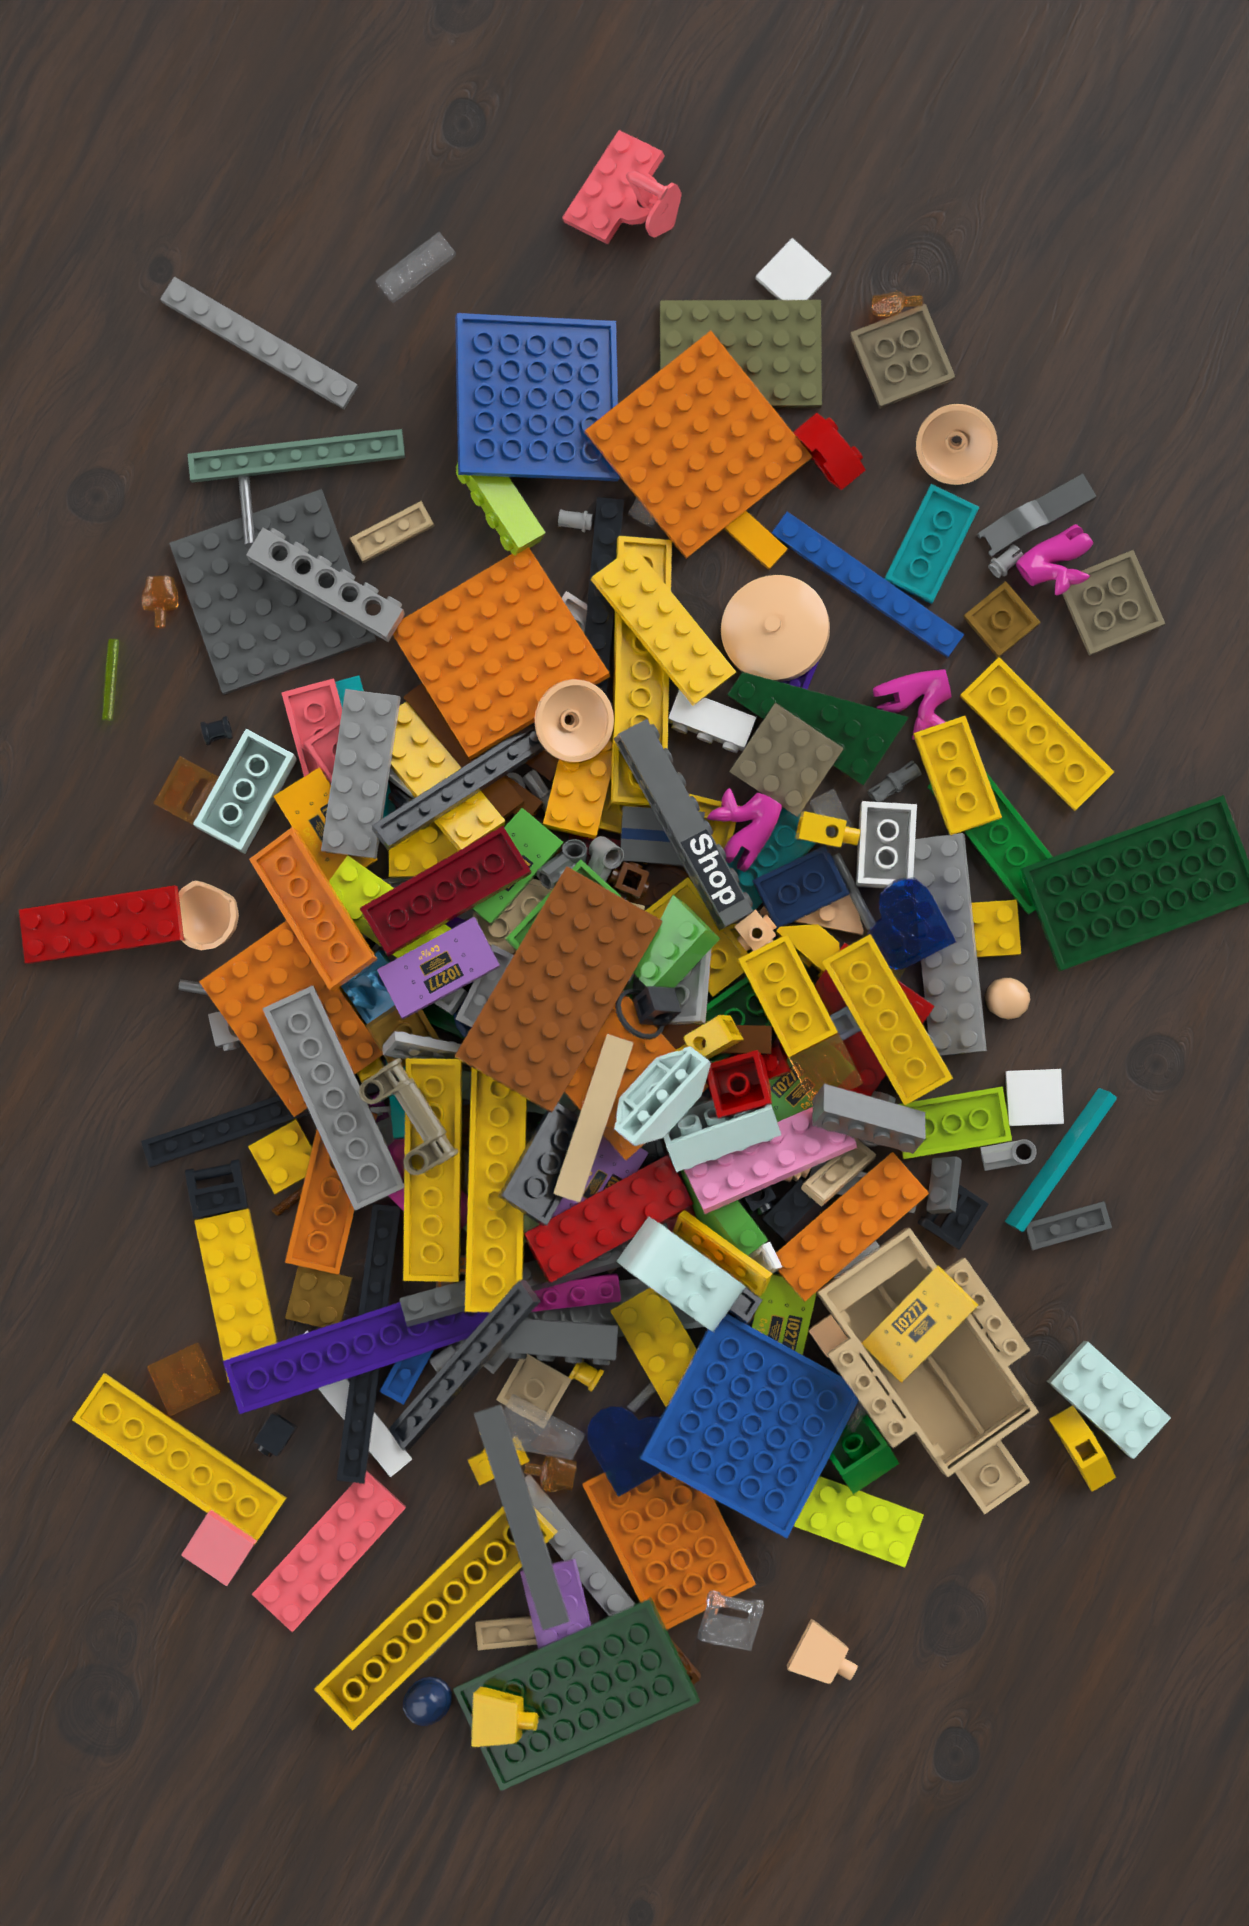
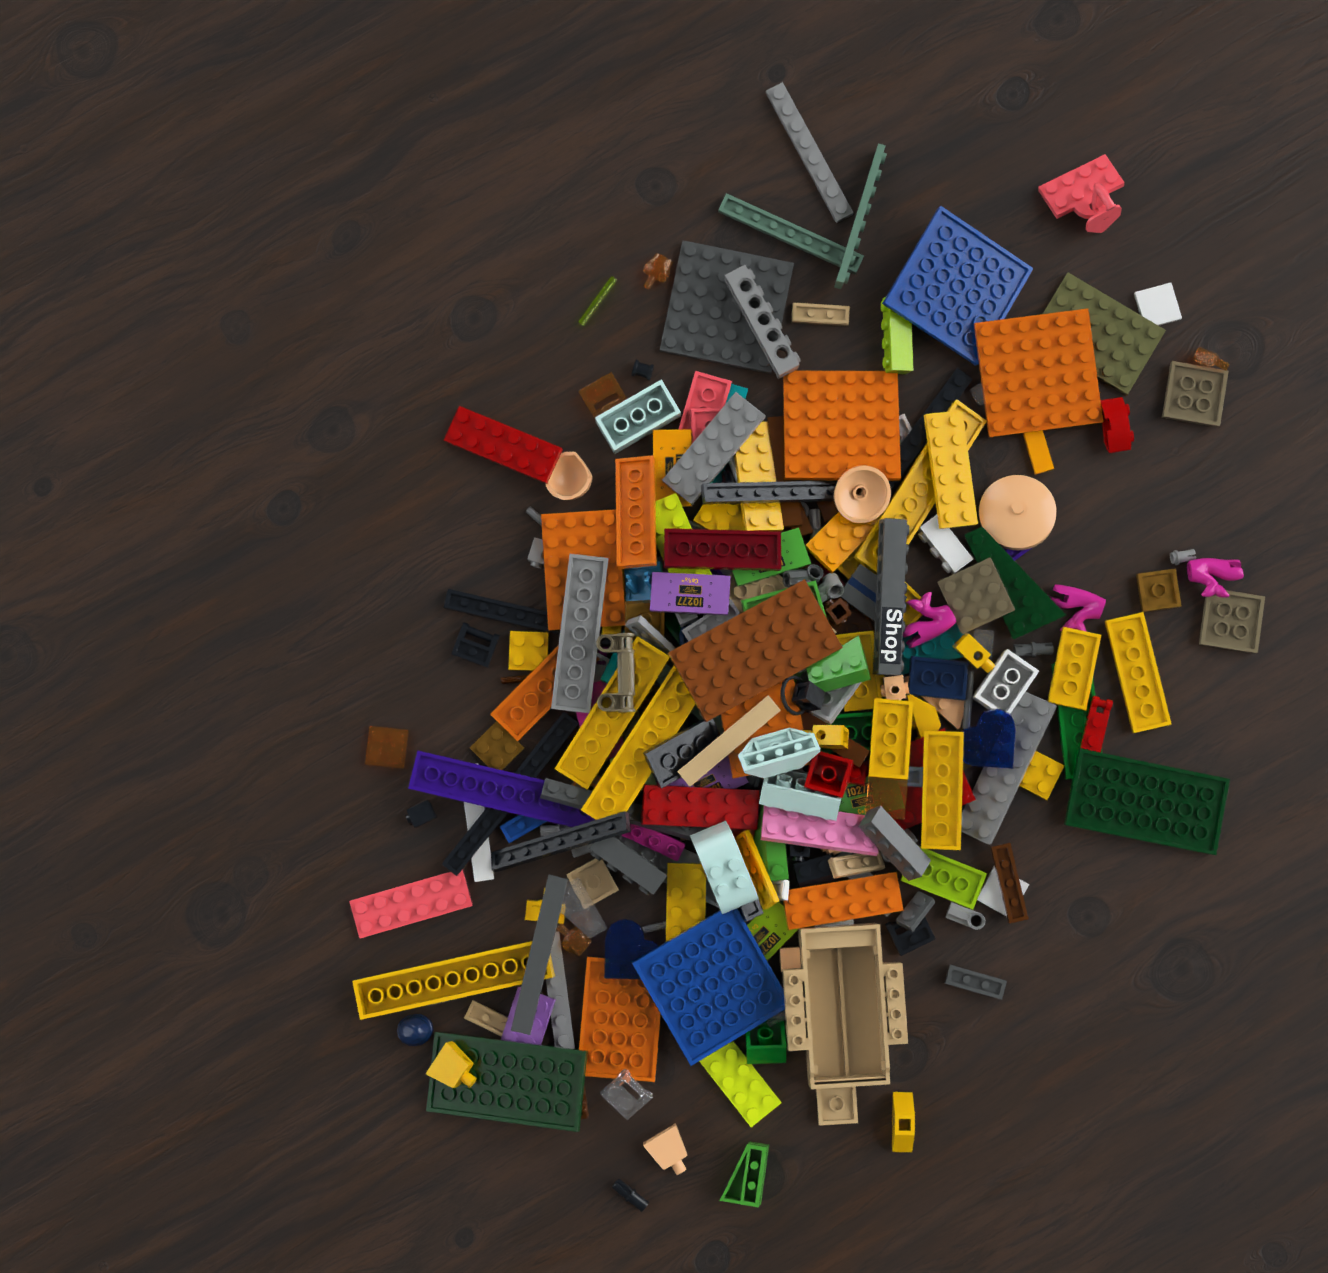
camera: 25 degrees right, 0 degrees up
(178, 1457) = (355, 793): yellow plate -> none
(218, 1547) = (346, 861): coral tile -> none
(236, 1283) = (452, 708): yellow plate -> none
(246, 508) = (741, 248): flat silver bar -> none
(372, 394) = (859, 224): none -> sand green plate
(415, 267) = (931, 163): clear plate -> none
(575, 520) = (935, 373): light grey pin -> none
(586, 1374) = (629, 892): yellow bush -> none
(809, 1738) = (630, 1194): none -> black axle
(867, 584) = (1089, 520): blue plate -> none
(919, 1324) = (850, 986): yellow tile -> none
(931, 543) = (1143, 518): teal tile -> none
(938, 1628) = (748, 1177): none -> bright green wedge
(953, 461) = (1191, 479): light nougat dish -> none
(1007, 998) = (1022, 821): light nougat hair -> none
(1024, 827) = (1096, 724): none -> red plate
(1036, 1082) = (1009, 883): none -> reddish brown plate
(1037, 513) = (1219, 539): dark grey piece -> none
(1061, 1159) = (995, 939): teal tile -> none
(1108, 1399) = (936, 1102): light aqua brick -> none

